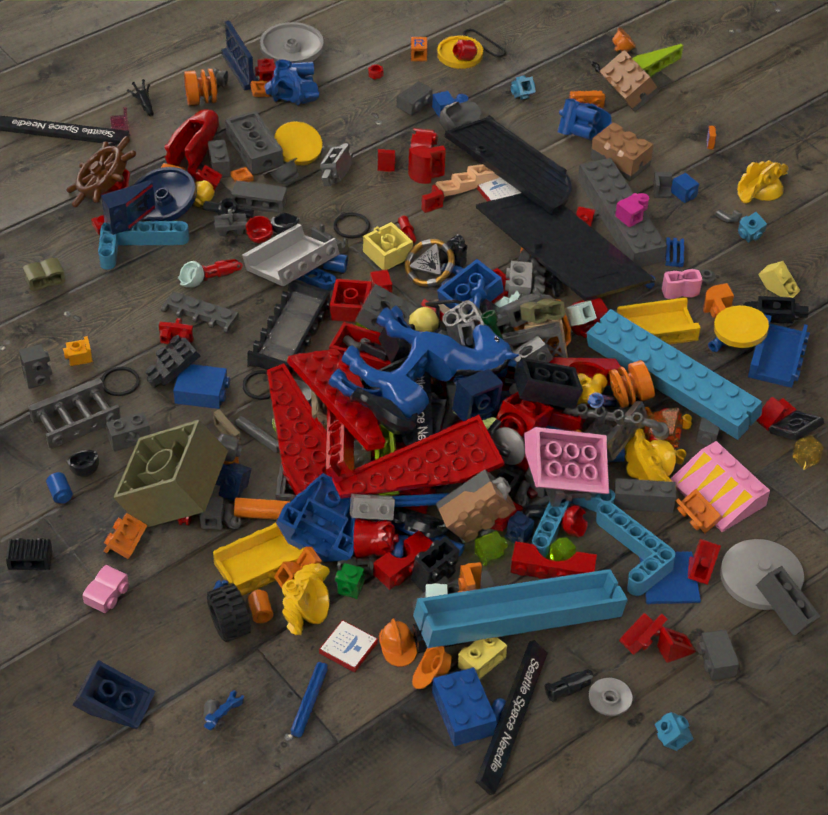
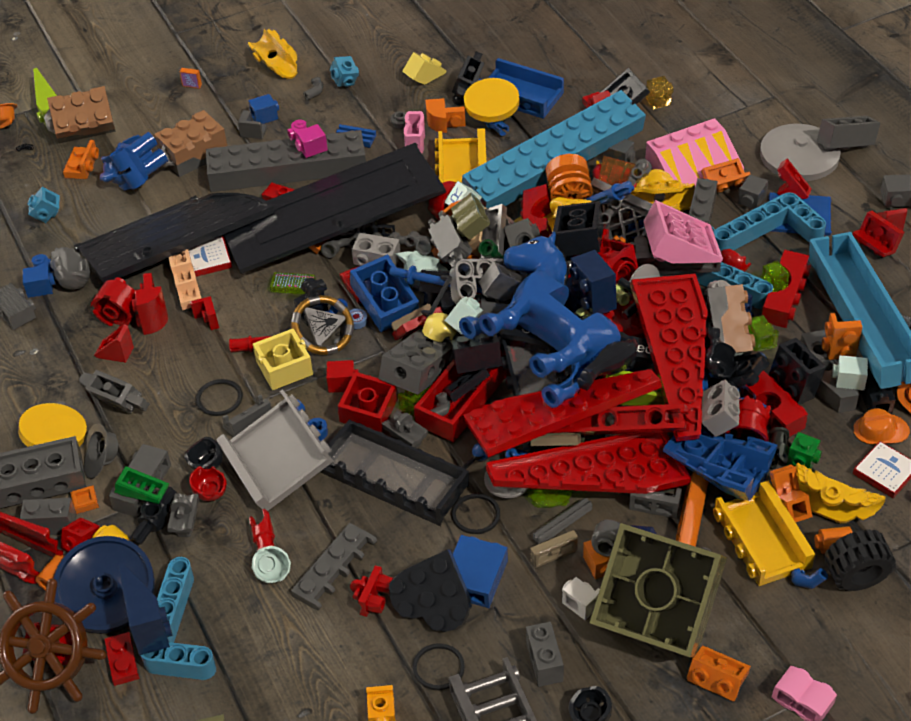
camera: 75 degrees left, 0 degrees up
(243, 181) = (136, 477): none -> green slope
(329, 327) = (405, 429): none -> dark grey hips
(424, 499) = (719, 357): none -> black hair
(427, 321) = (464, 308): none -> light aqua brick
(481, 243) = (288, 282): none -> clear neon green tile
(681, 534) = (753, 192): none -> dark grey brick

